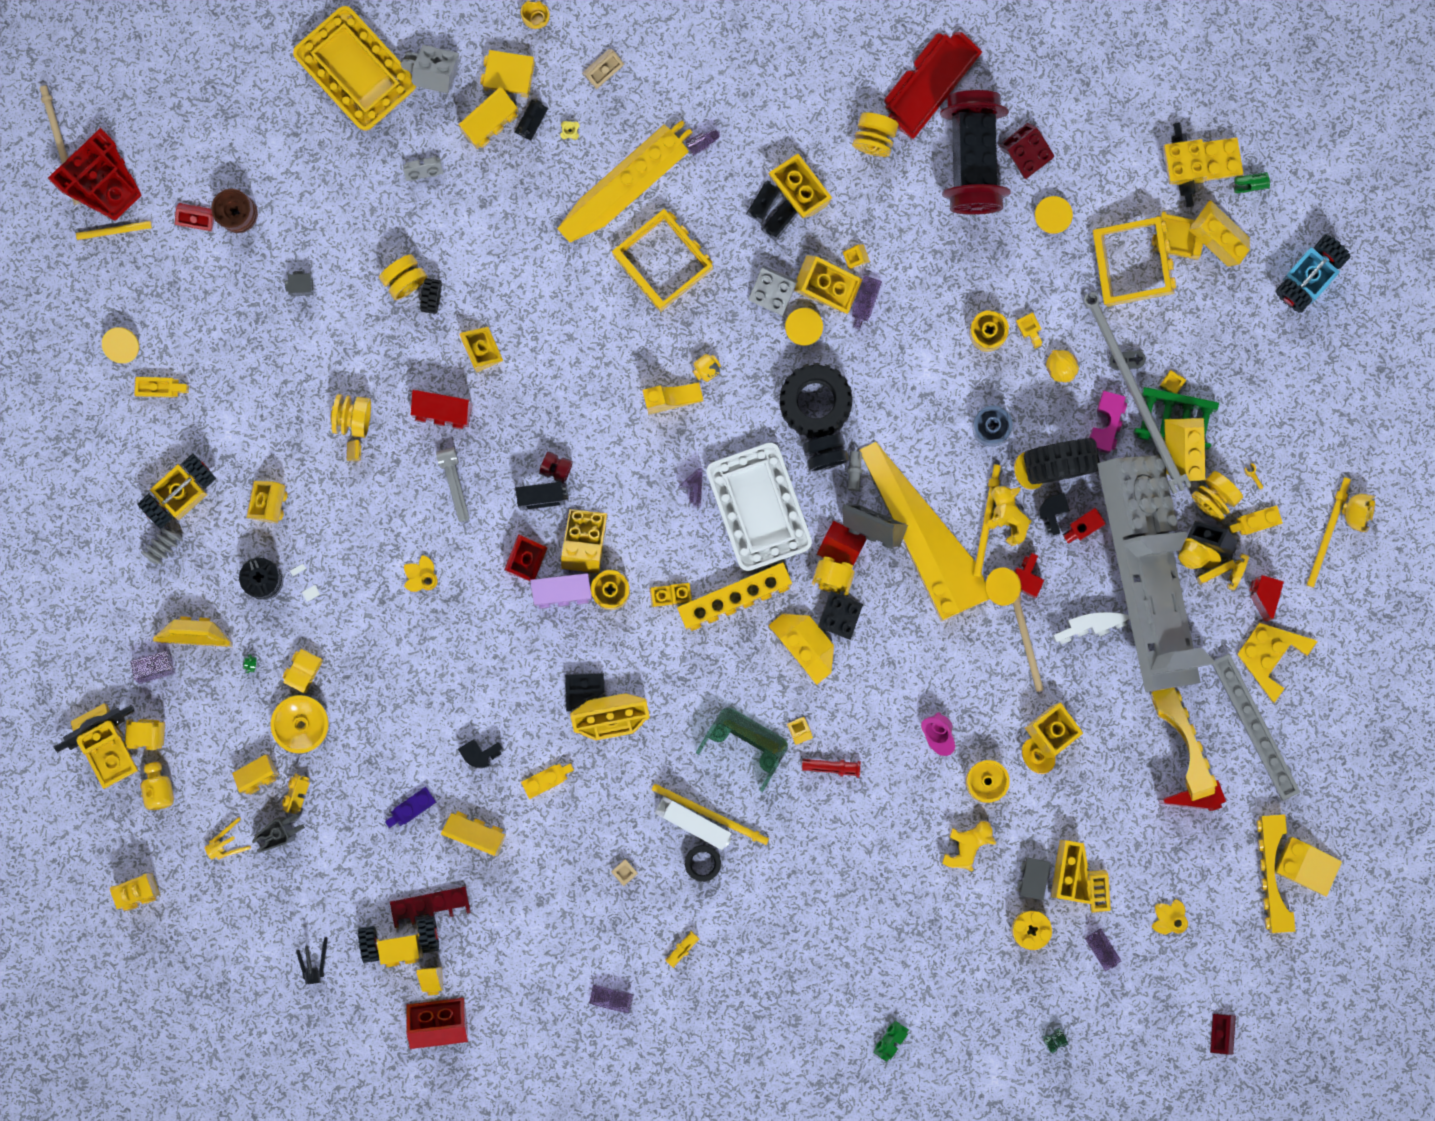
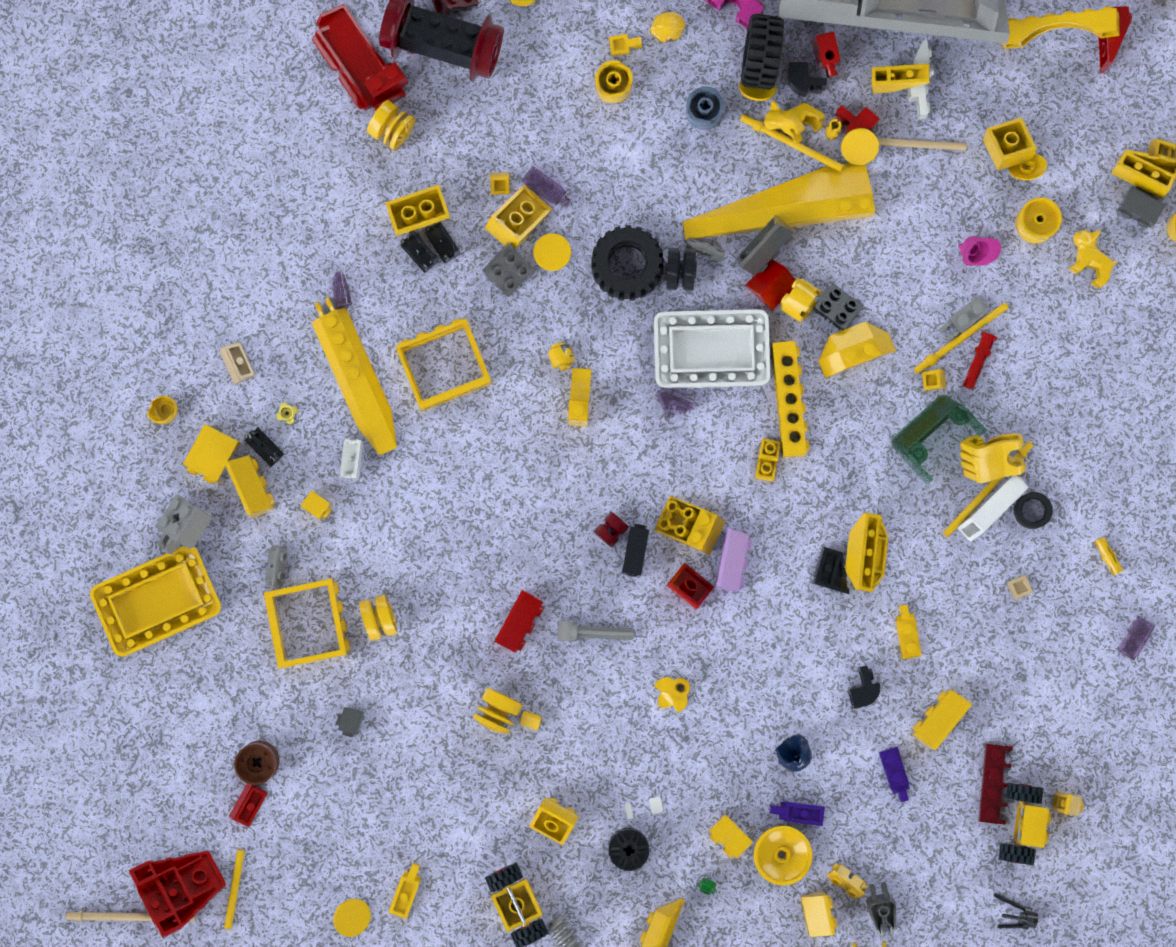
camera: 75 degrees left, 0 degrees up
(344, 728) = (799, 813): none -> dark purple hinge
(360, 189) = (340, 625): none -> yellow window
(398, 700) = (792, 747): none -> dark blue hair
(430, 296) = (405, 596): black tyre -> none
(436, 1023) = (1109, 812): red slope -> none
(481, 348) = (471, 565): yellow slope -> none
(490, 186) = (317, 506): none -> yellow brick
(545, 204) = (351, 459): none -> white hinge
(603, 582) = (757, 511): yellow brick -> none
(736, 805) = (991, 459): none -> yellow piece
(817, 720) = (931, 359): none -> yellow bar
(870, 742) = (965, 317): none -> light grey hinge
(915, 115) = (385, 82): none -> red brick
(1014, 552) = (833, 129): none -> yellow pin
(1083, 602) = (897, 78): none -> yellow slope

